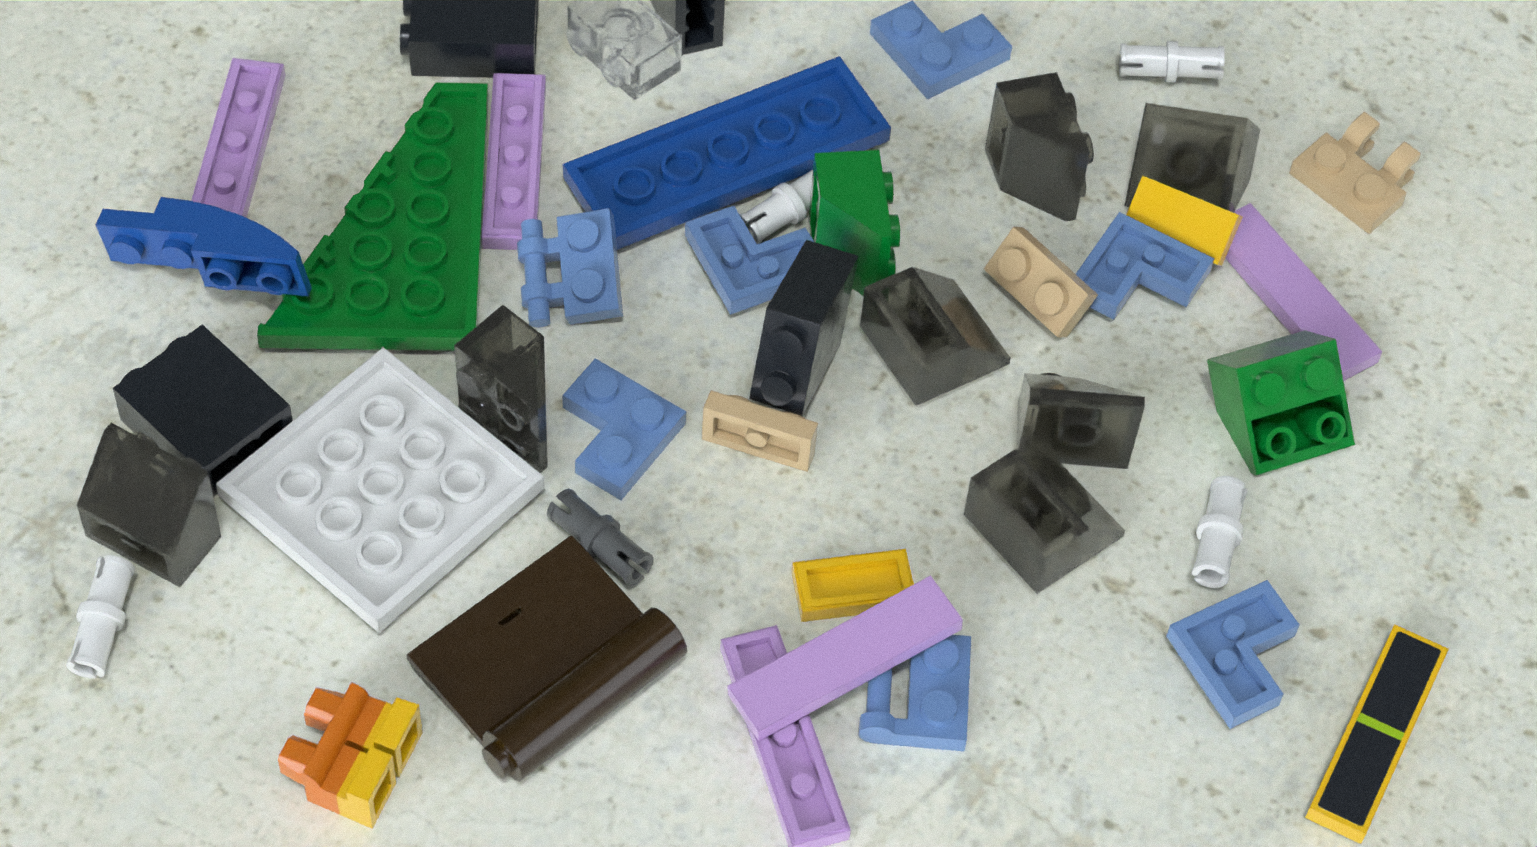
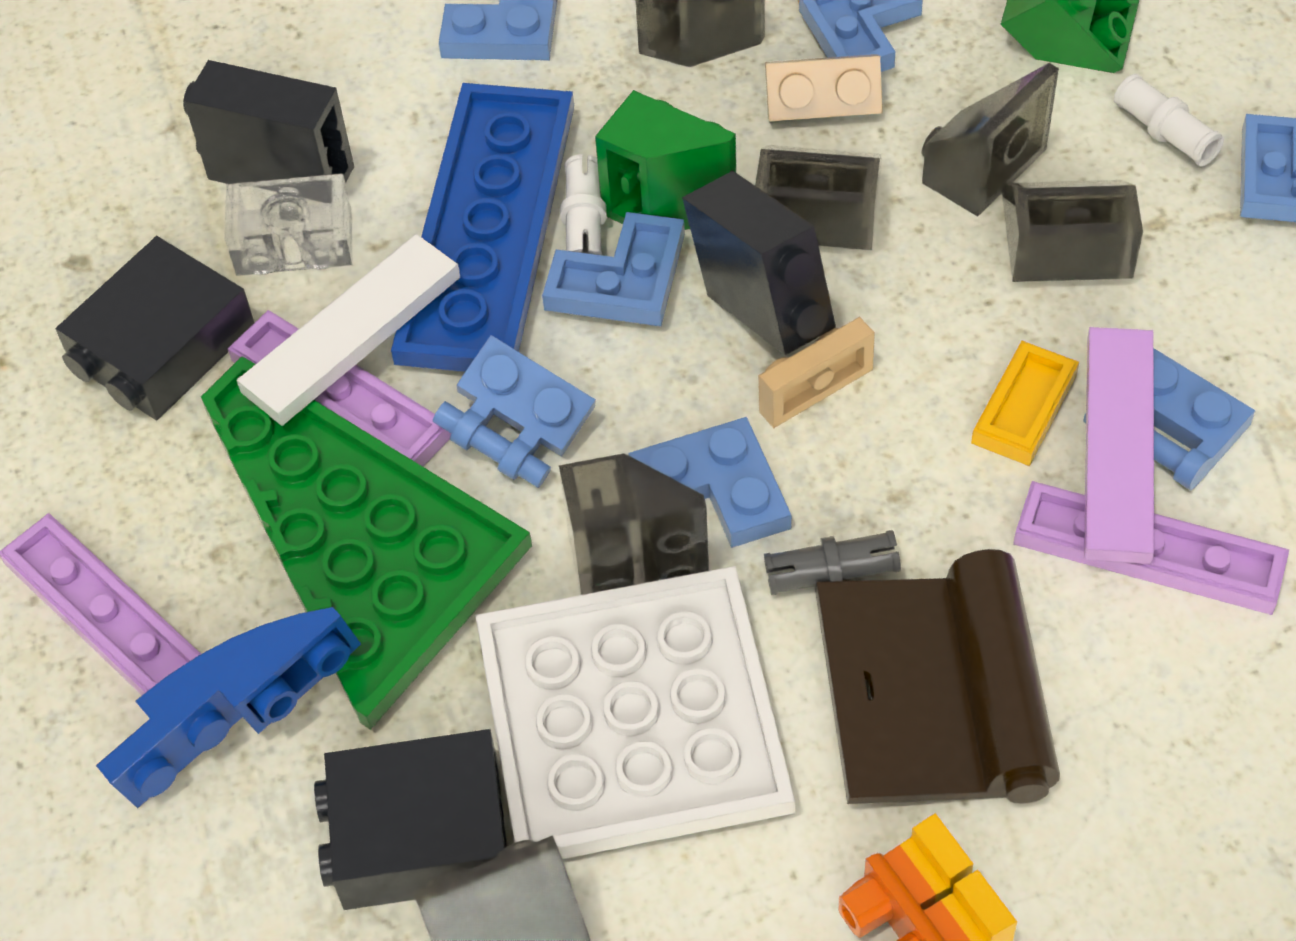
camera: 45 degrees left, 0 degrees up
(555, 126) = (348, 329): none -> white tile

